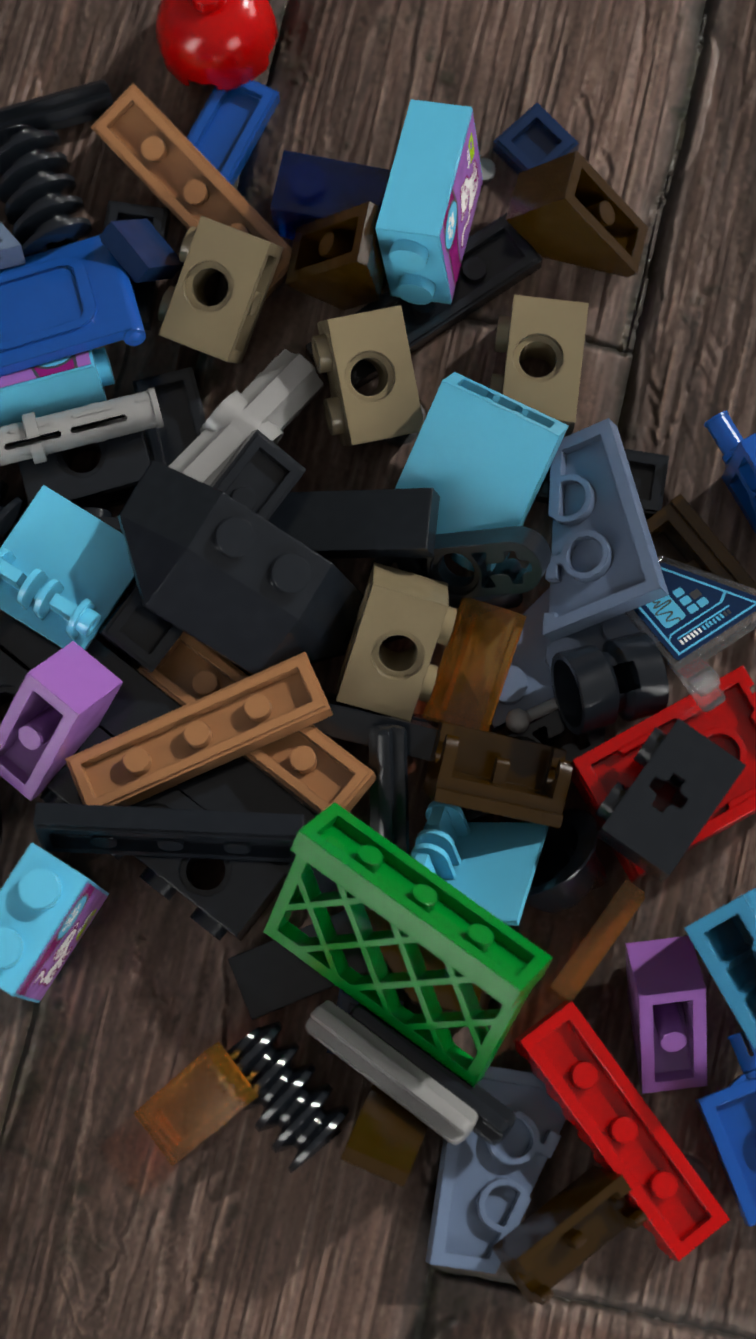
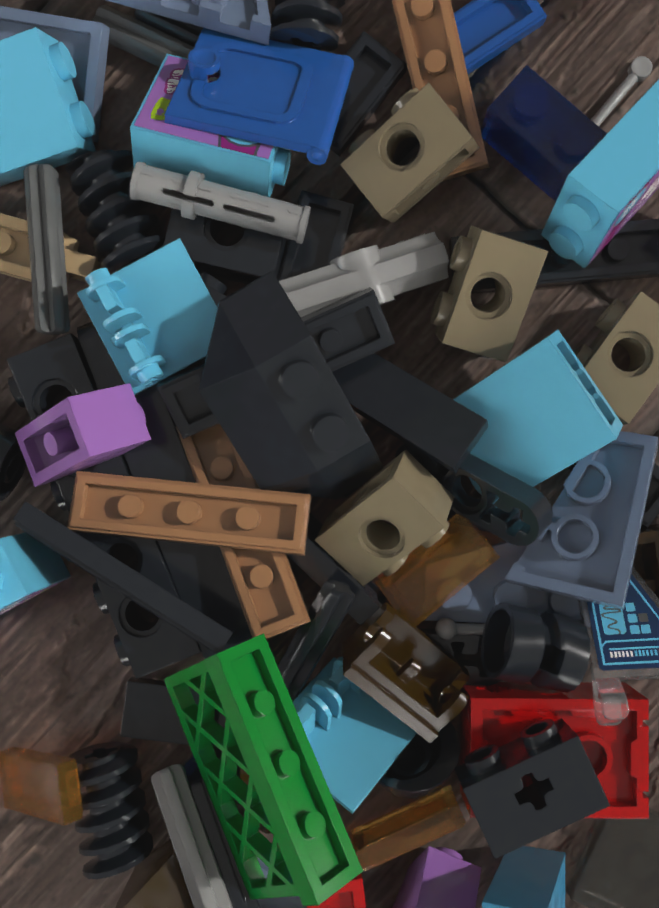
camera: 25 degrees right, 10 degrees up
(140, 250) = (364, 85): dark blue tile -> none
(339, 258) = (521, 180): dark brown slope -> none
(397, 93) = (637, 72): none -> light grey hinge

